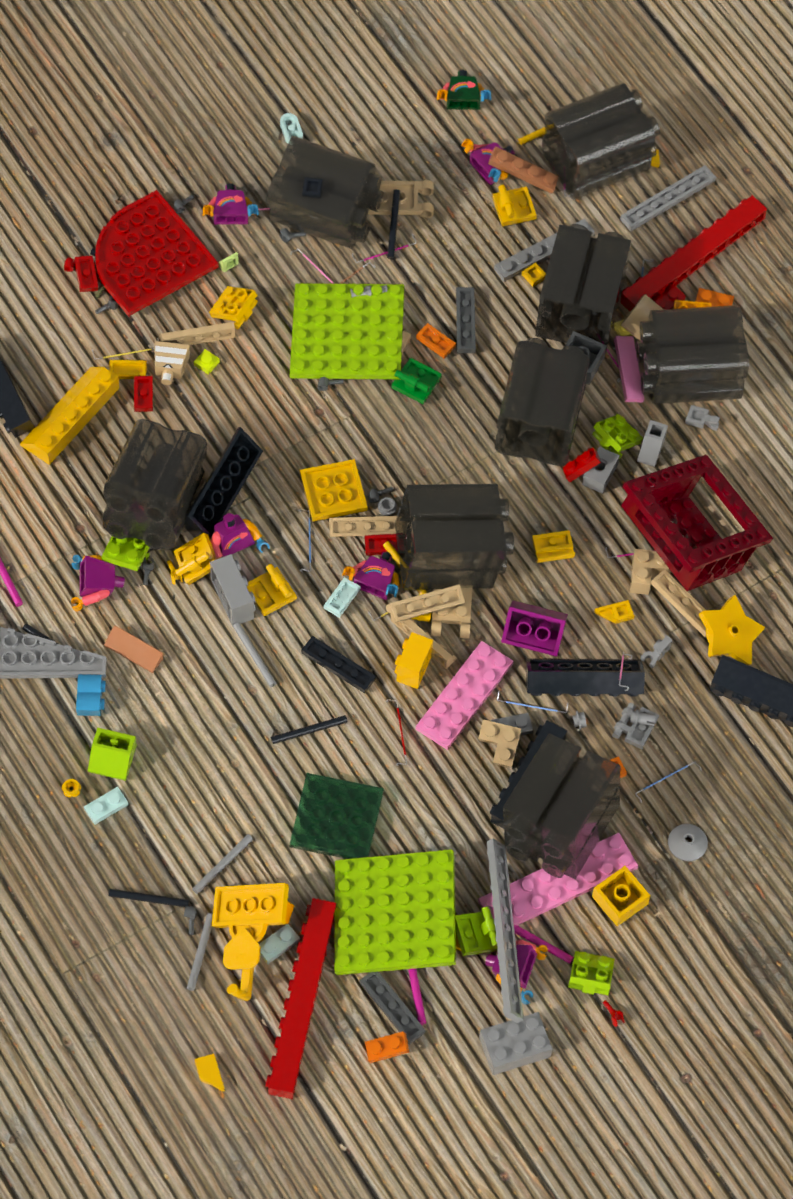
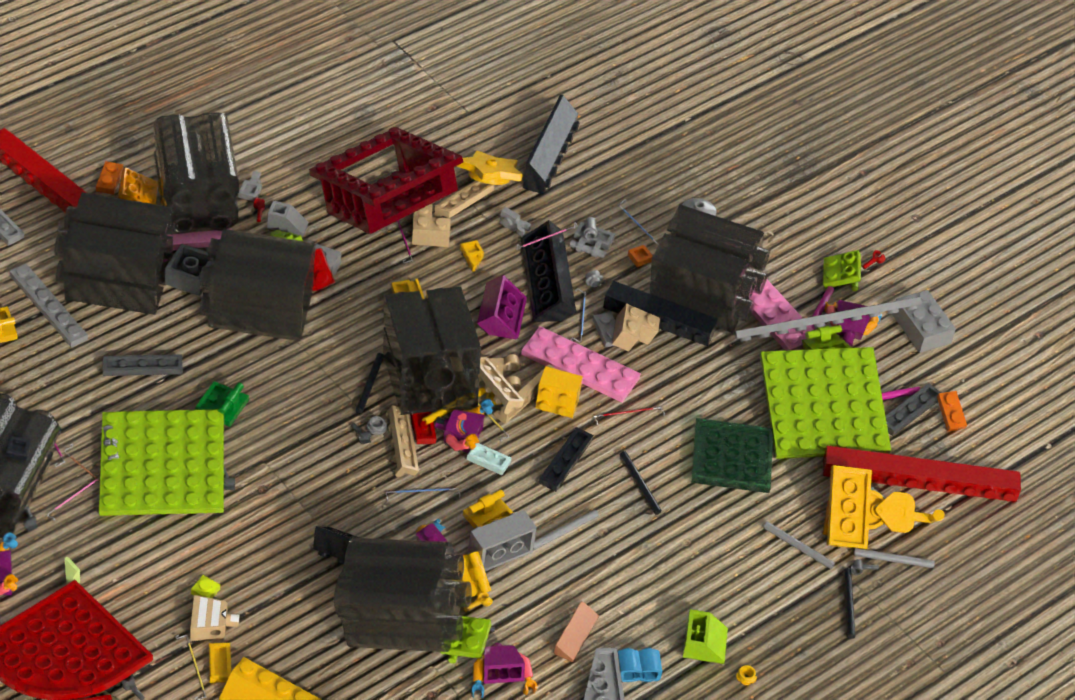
camera: 100 degrees left, 15 degrees down
(106, 805) = (758, 645): light aqua plate -> none
(143, 393) = (254, 642): red plate -> none
(200, 334) = (174, 598): tan hinge -> none
(209, 1071) = (1010, 544): yellow tile -> none
(234, 305) = (132, 562): yellow plate -> none
(333, 490) = (363, 469): yellow plate -> none
(435, 340) = (170, 389): orange plate -> none
(534, 274) = (81, 312): yellow tile -> none
(621, 896) = (779, 244): yellow brick -> none
(679, 426) = (260, 205): none -> red hand

